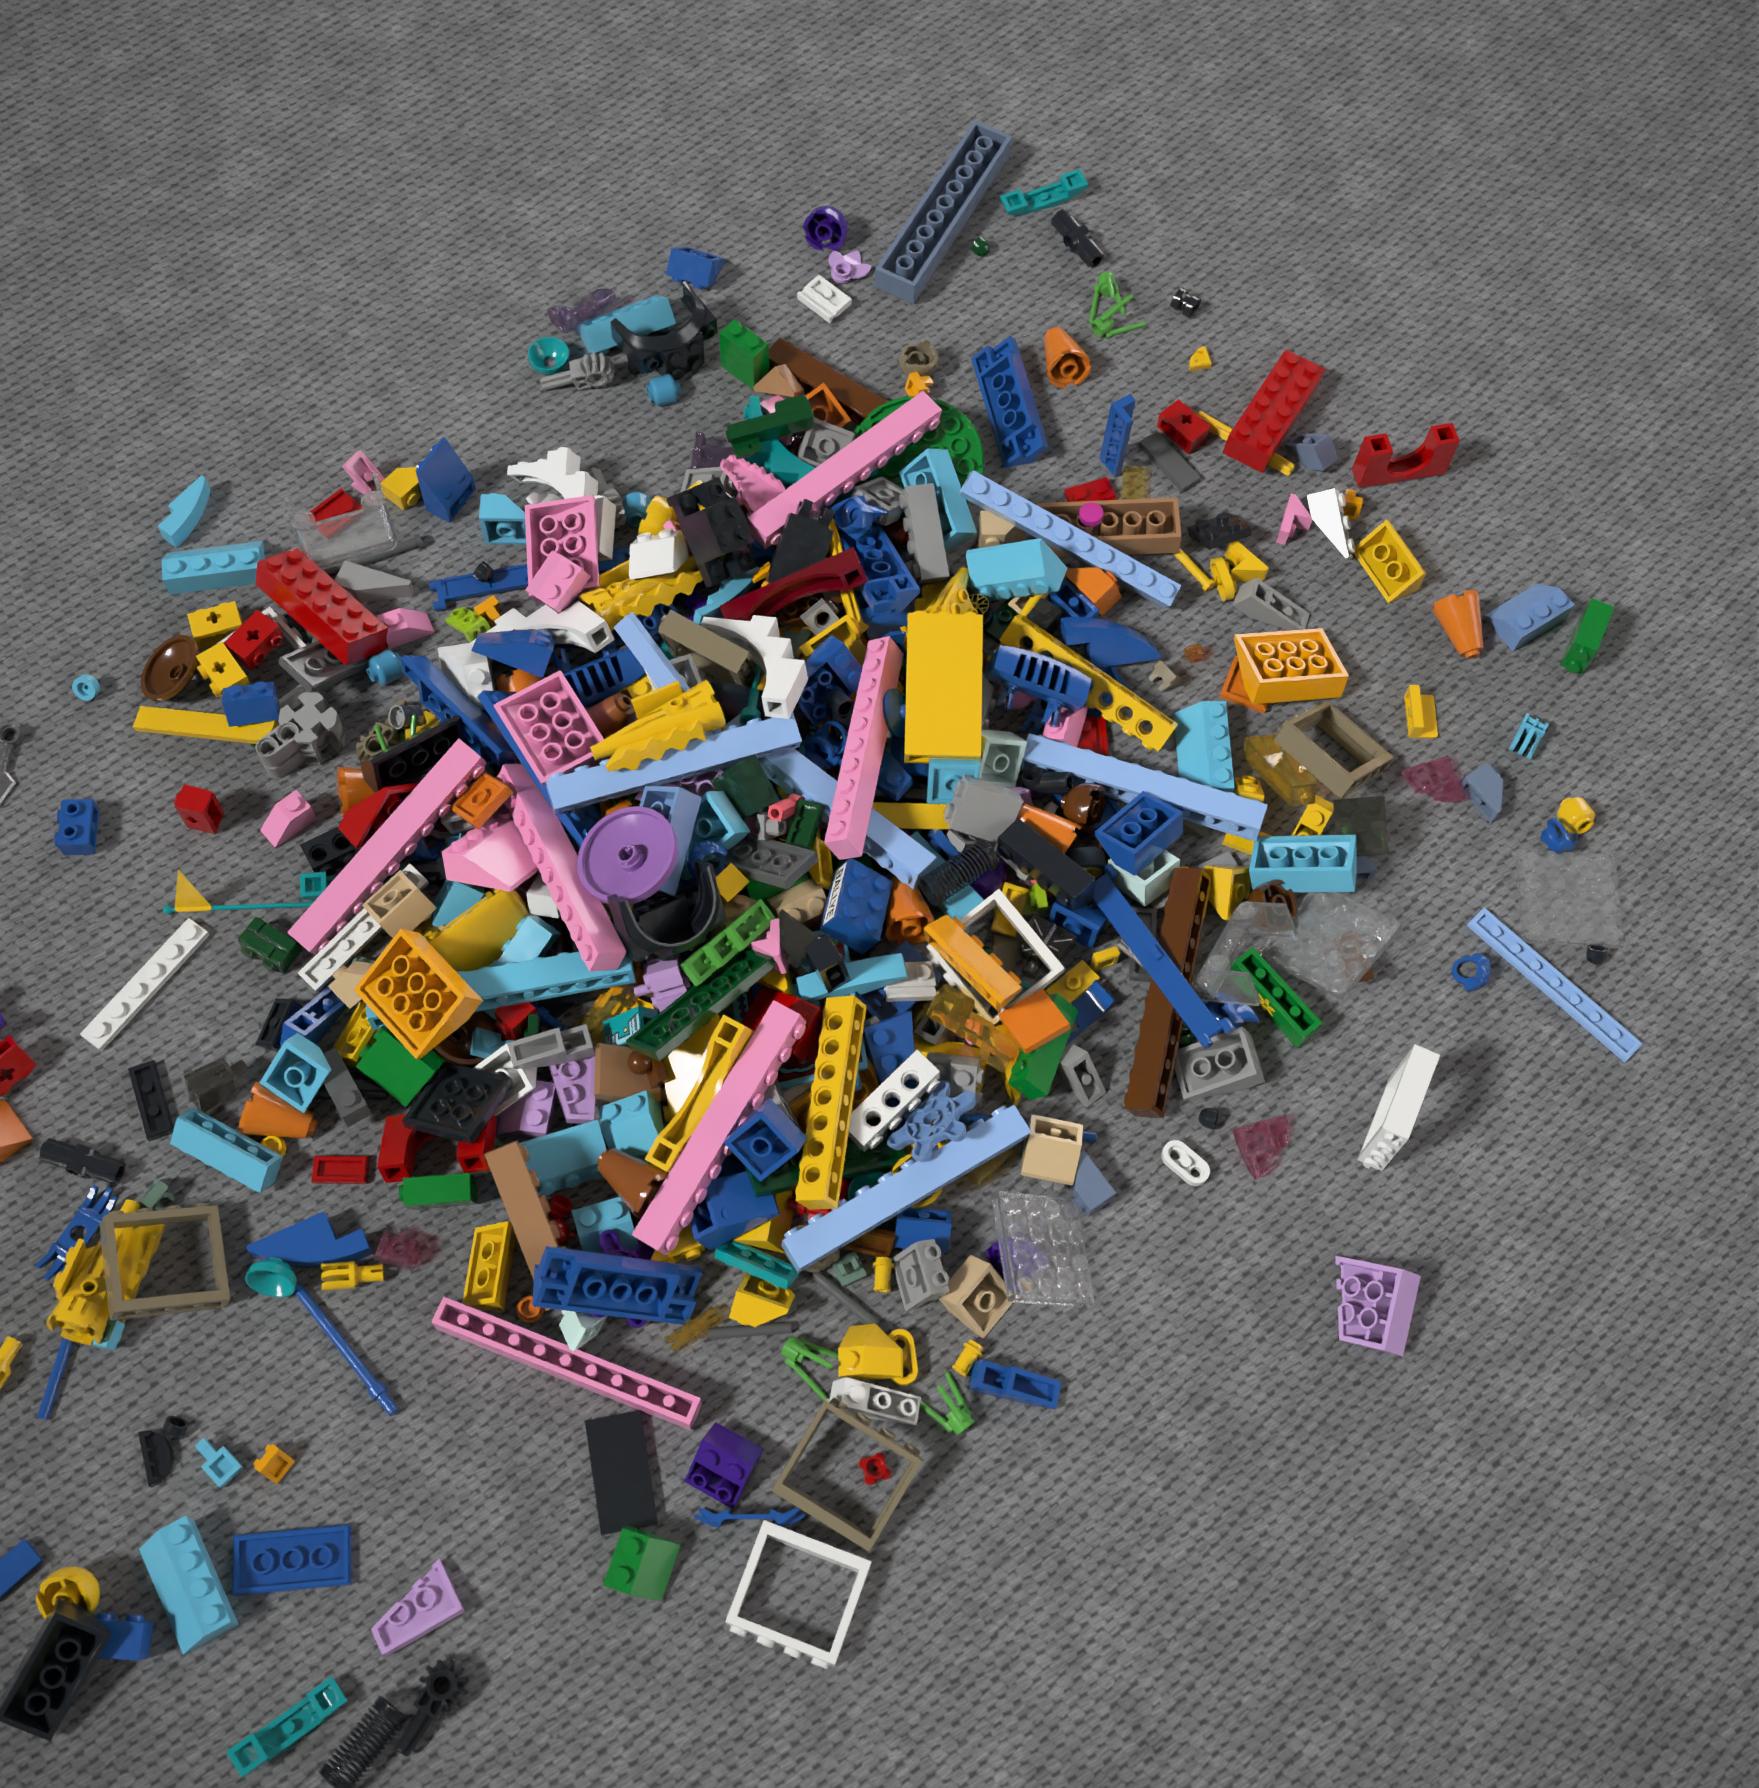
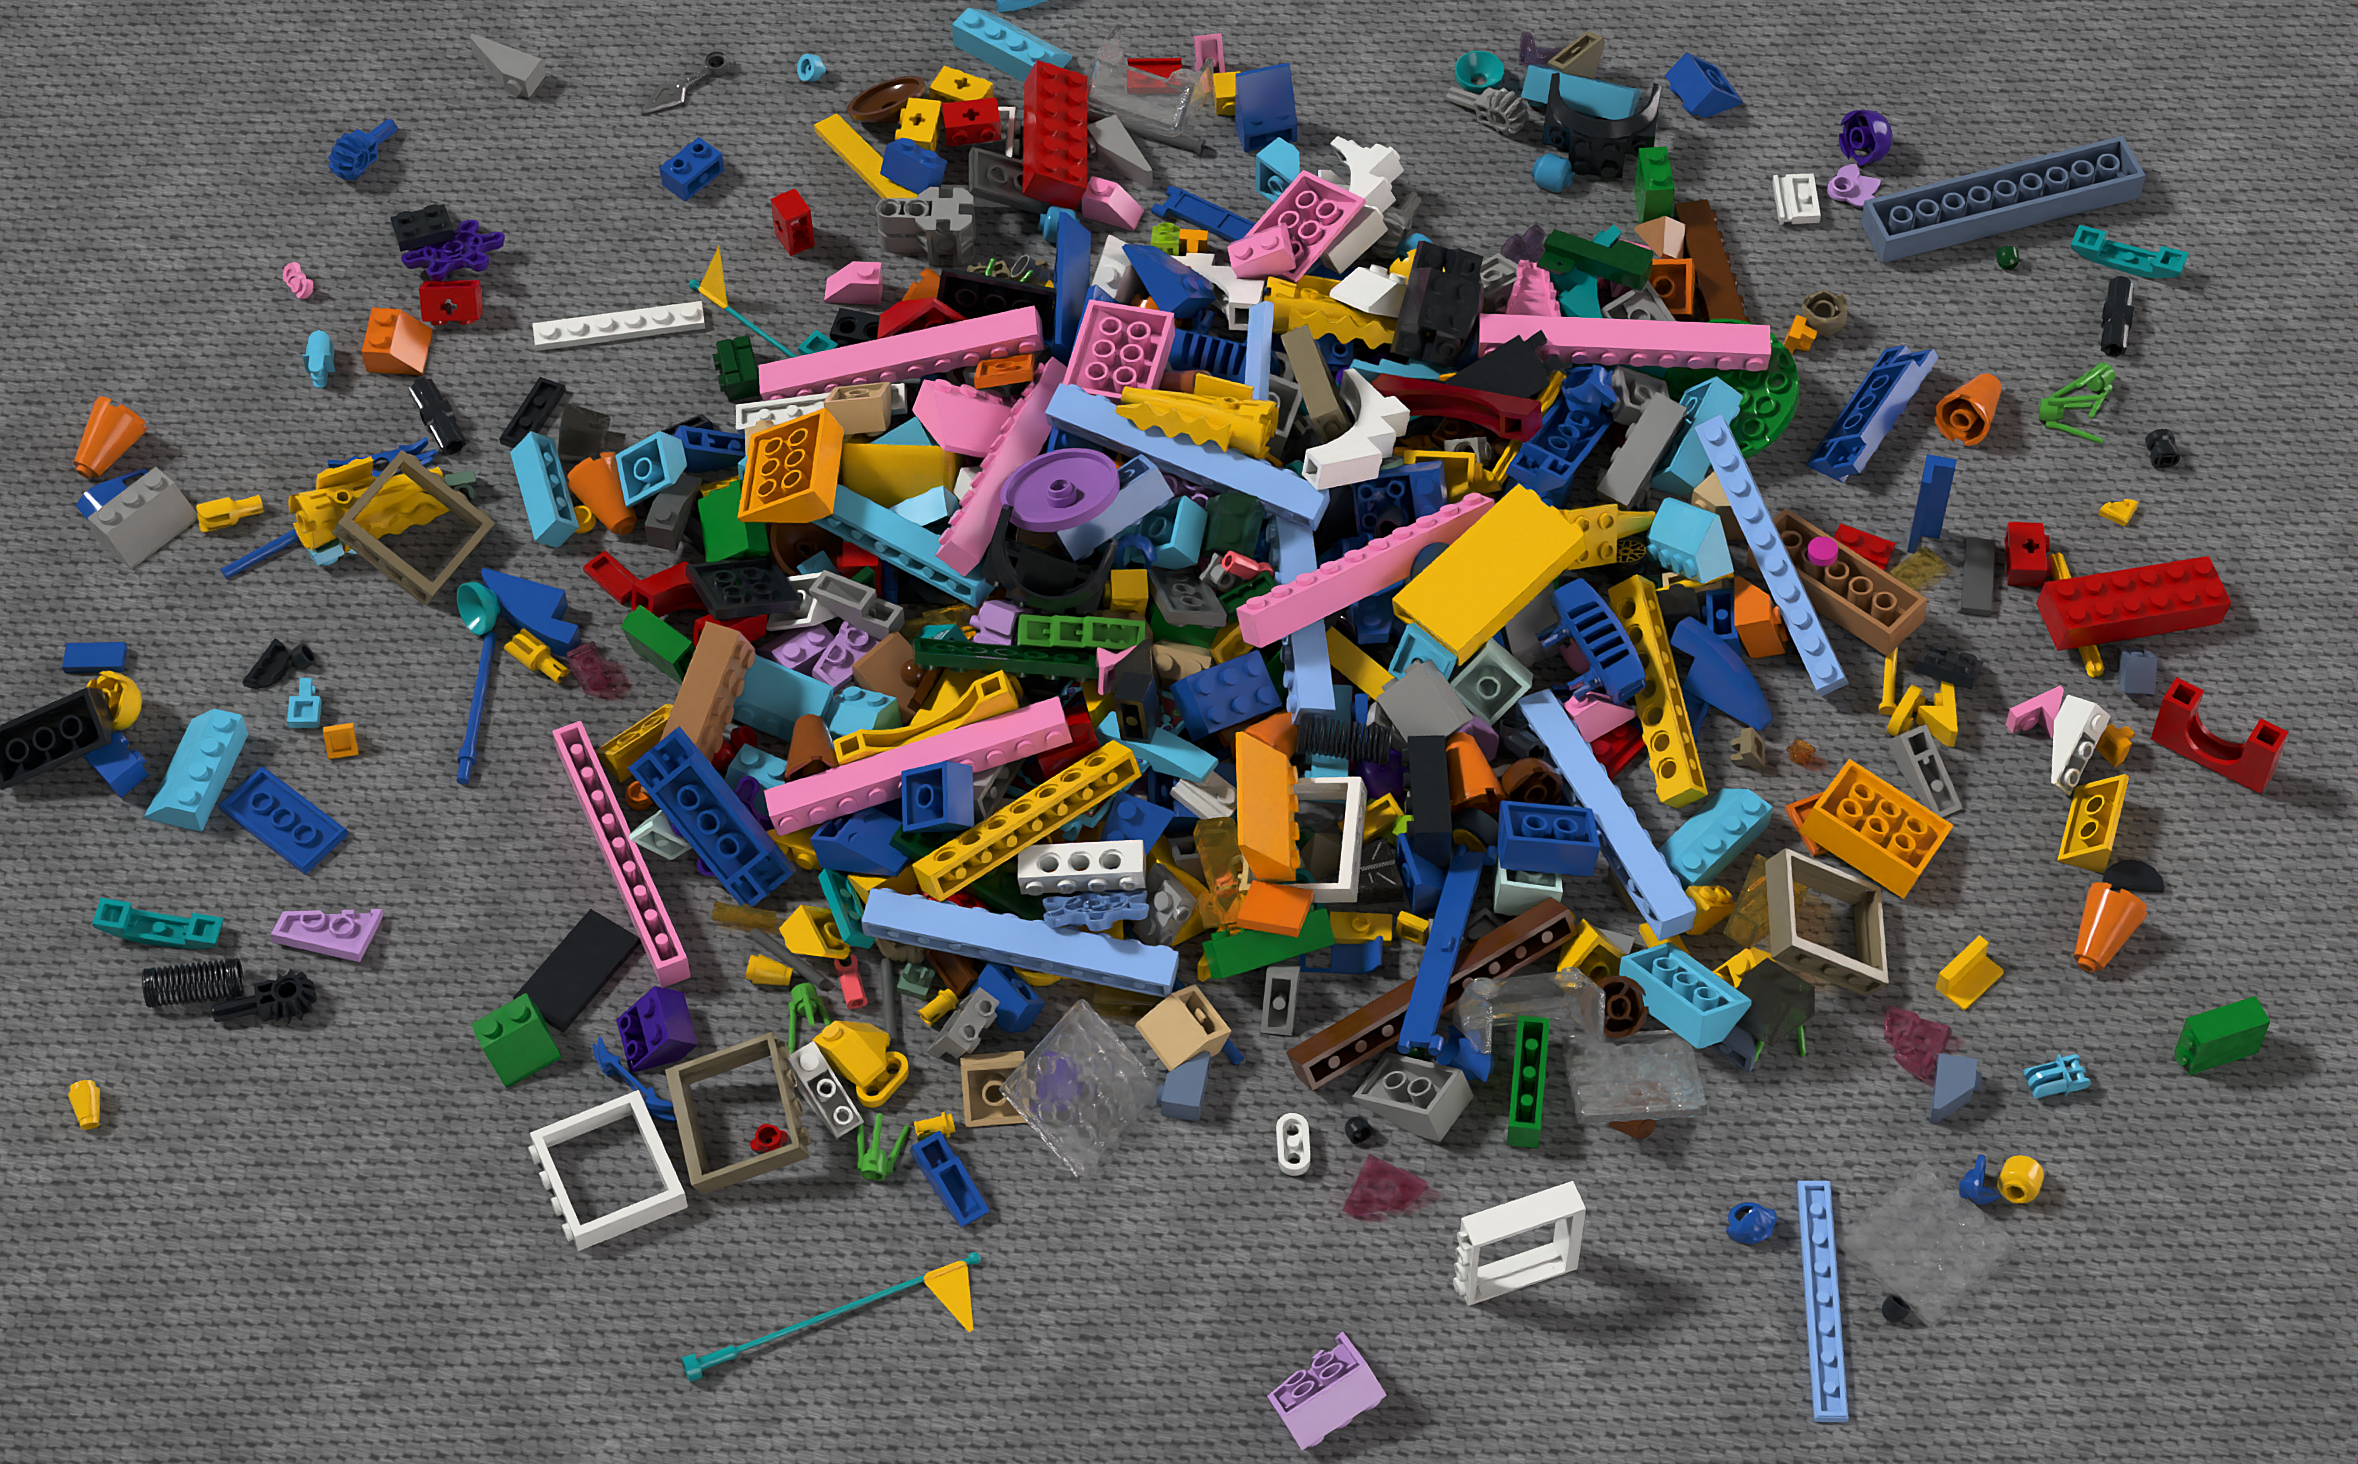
camera: 50 degrees right, 10 degrees down
(483, 572) = (1221, 207): black hinge -> none
(606, 298) = (1580, 57): none -> dark tan slope
(749, 1353) = (767, 971): none -> yellow cone
(811, 1310) = (851, 983): none -> coral bar
(1085, 1455) = (947, 1283): none -> piece
(1436, 579) = (2133, 876): none -> black tile
(1529, 614) = (2190, 979): medium blue slope -> none

